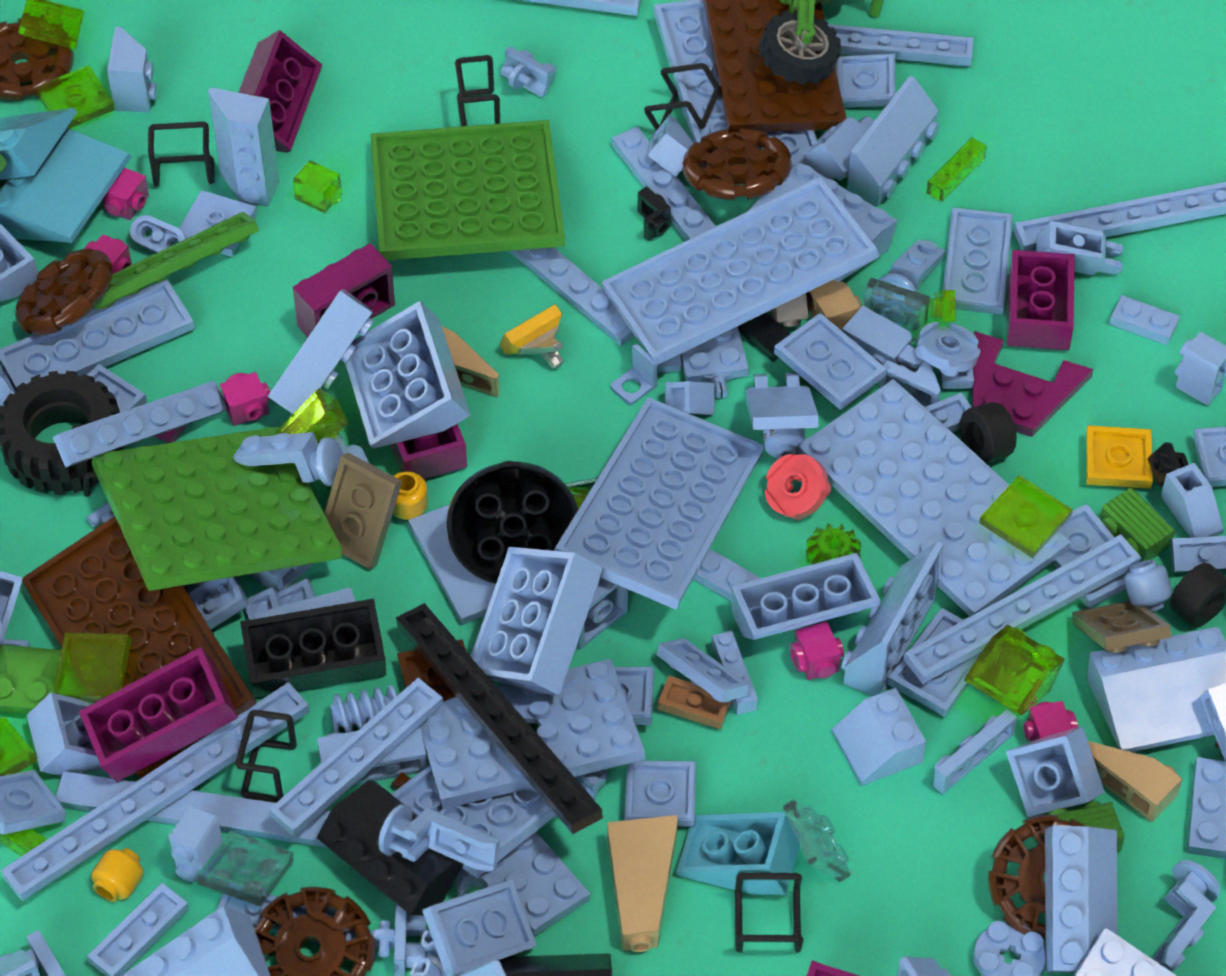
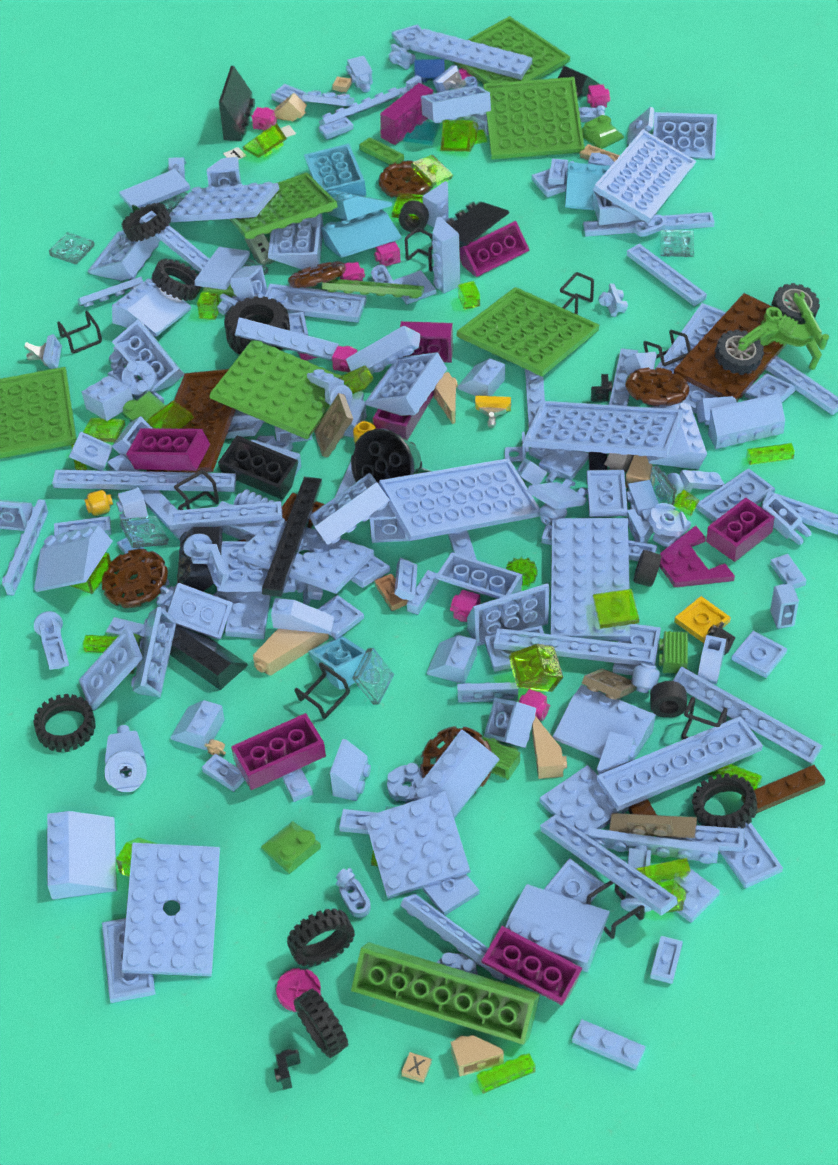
camera: 45 degrees right, 5 degrees down
(100, 99) = (416, 208): none -> black tyre
(216, 58) = (475, 221): none -> black slope
(474, 301) = (484, 378): none -> light blue slope
(635, 830) = (297, 616): none -> light blue slope
(810, 496) = (534, 535): coral plate -> none
(1193, 899) = (511, 813): light blue piece -> none

